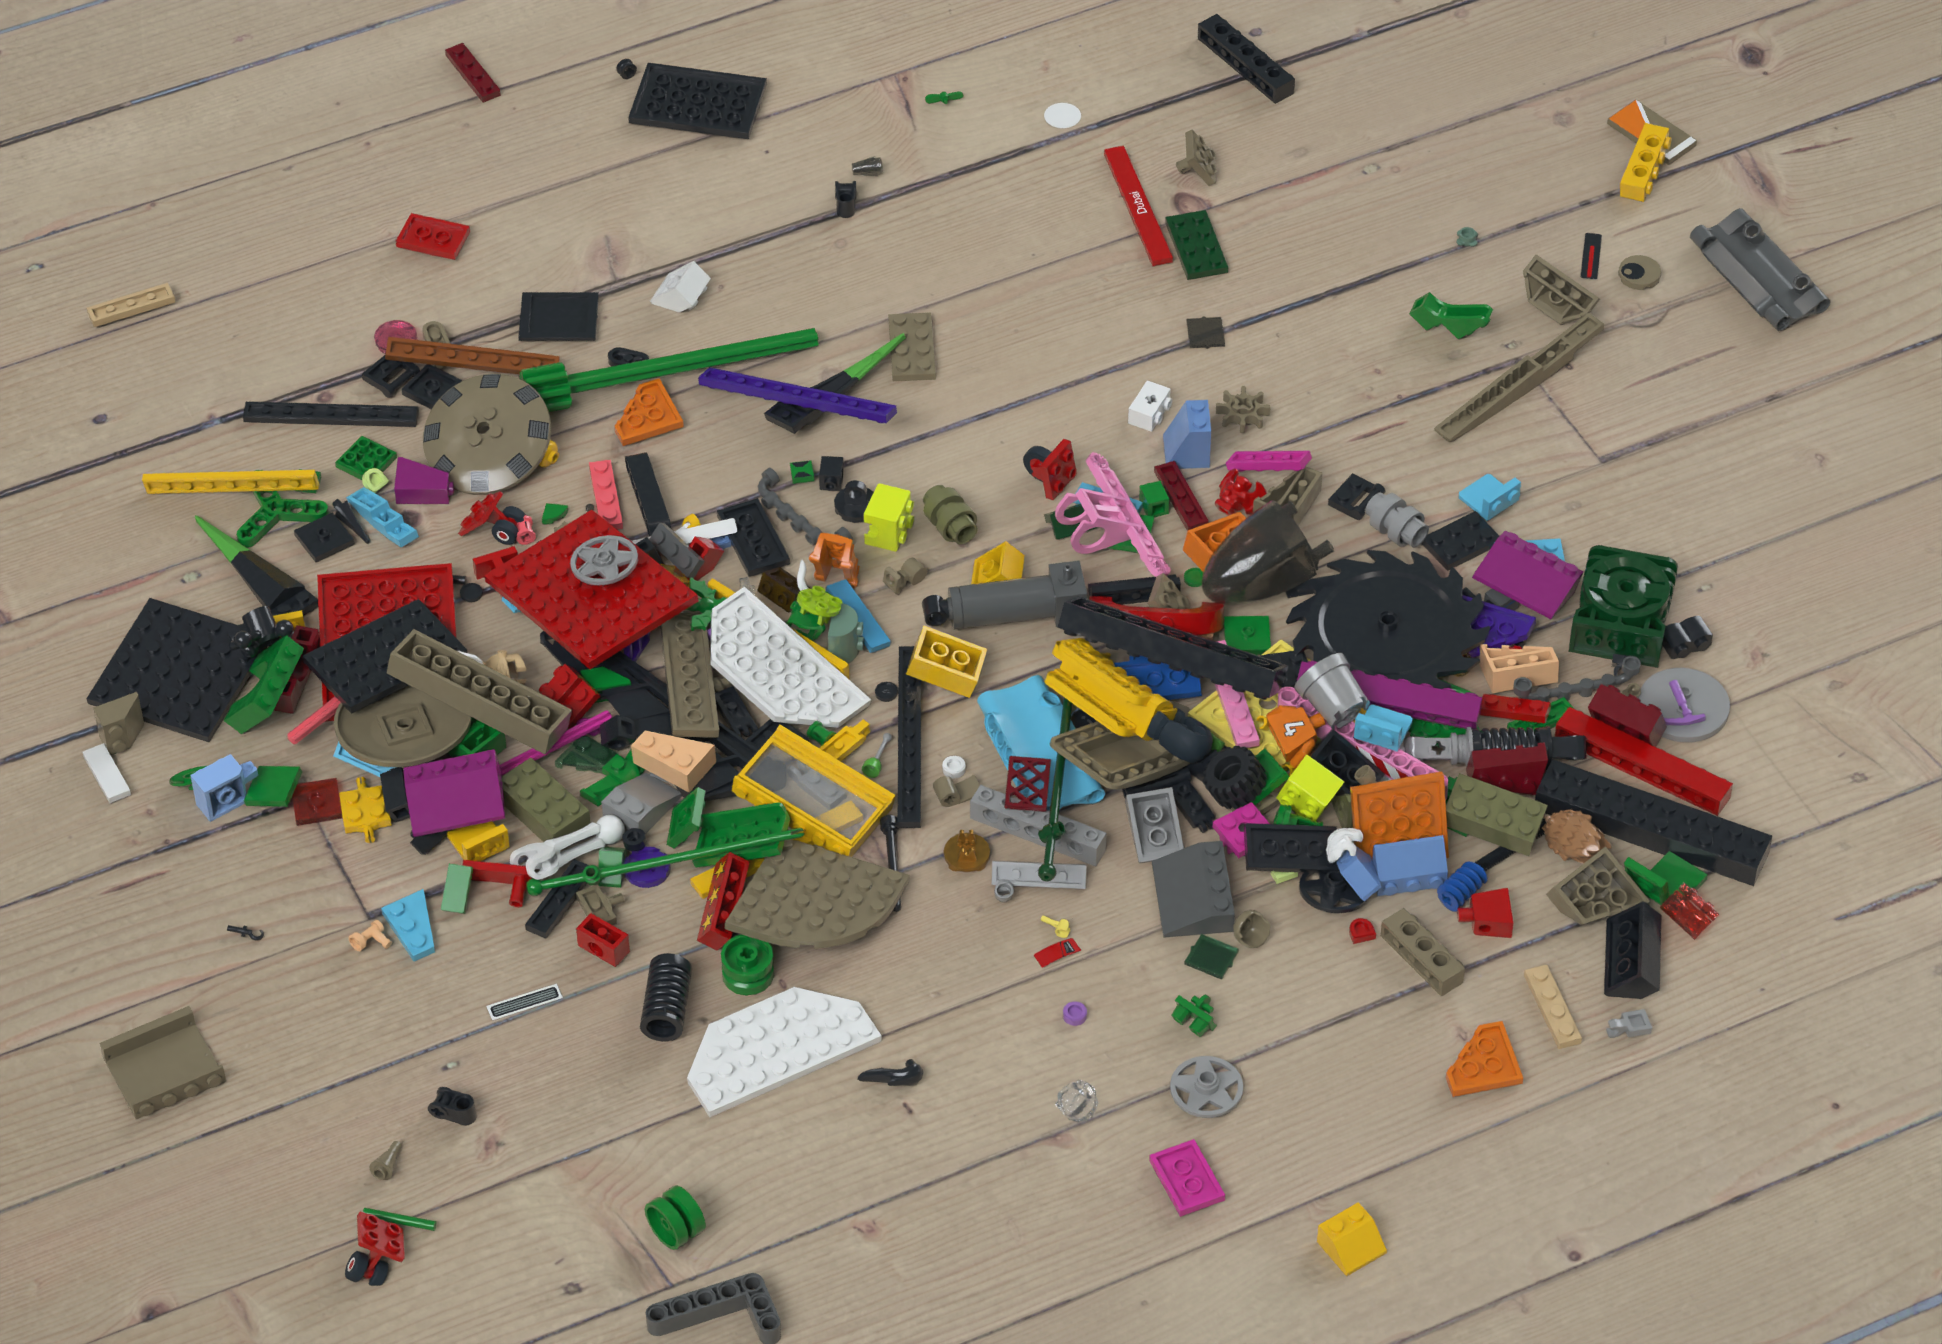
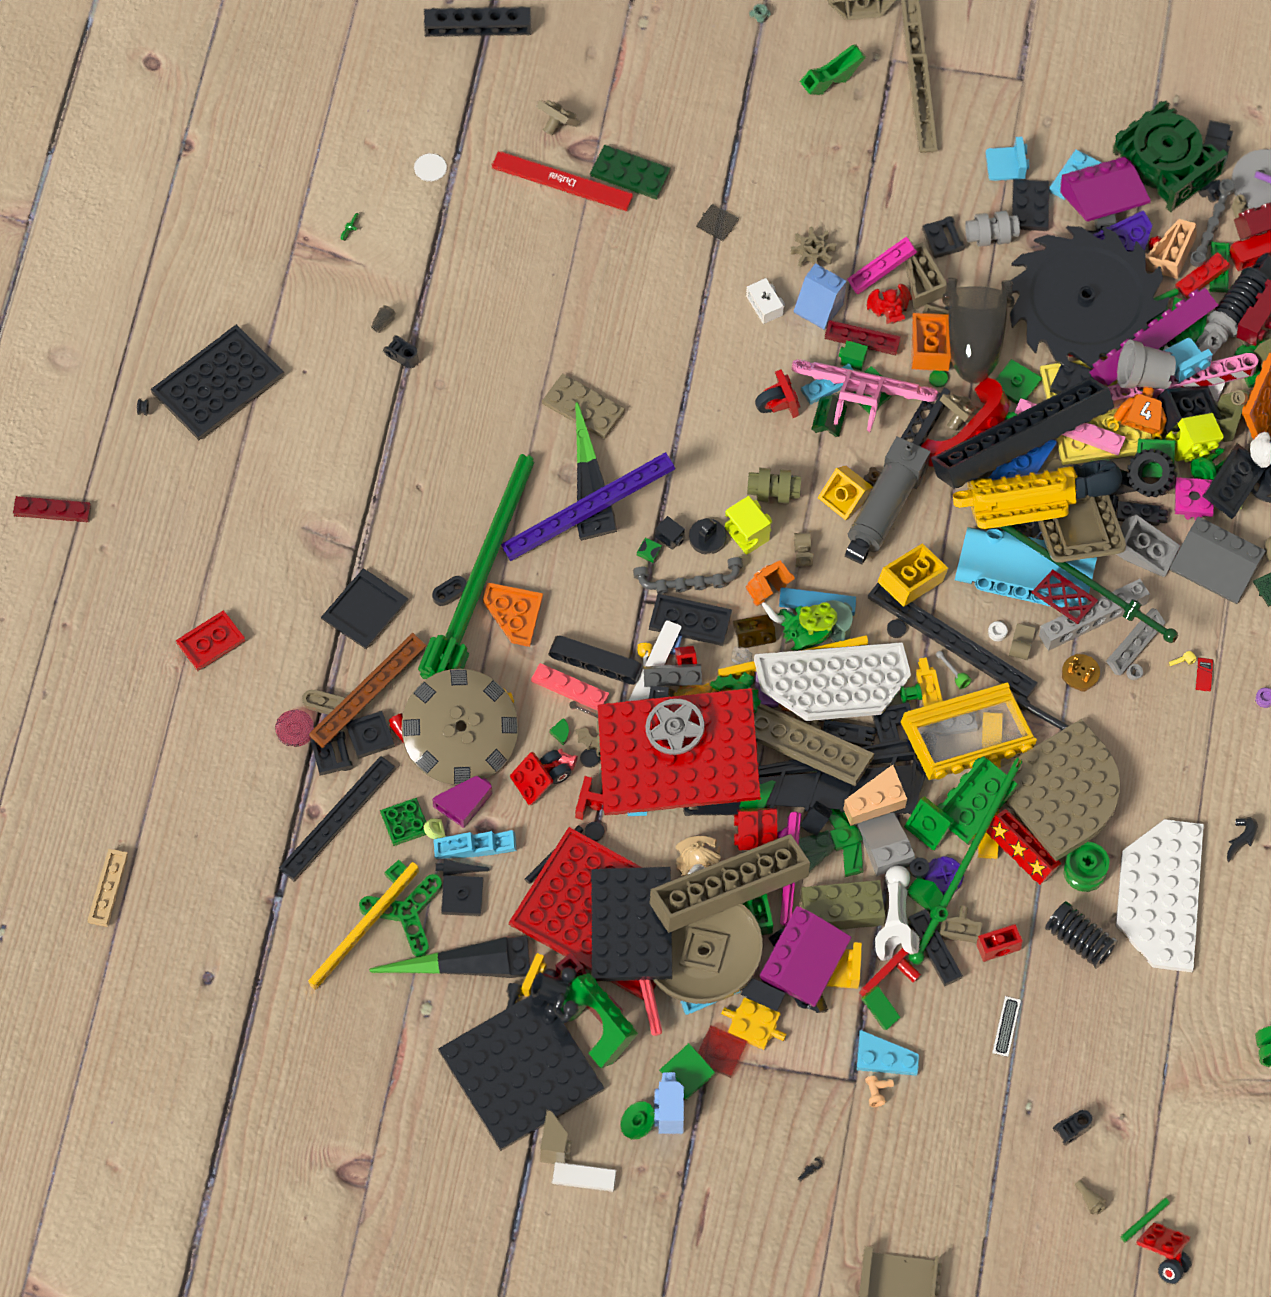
camera: 55 degrees left, 15 degrees up
(681, 288) = (405, 513): white slope -> none

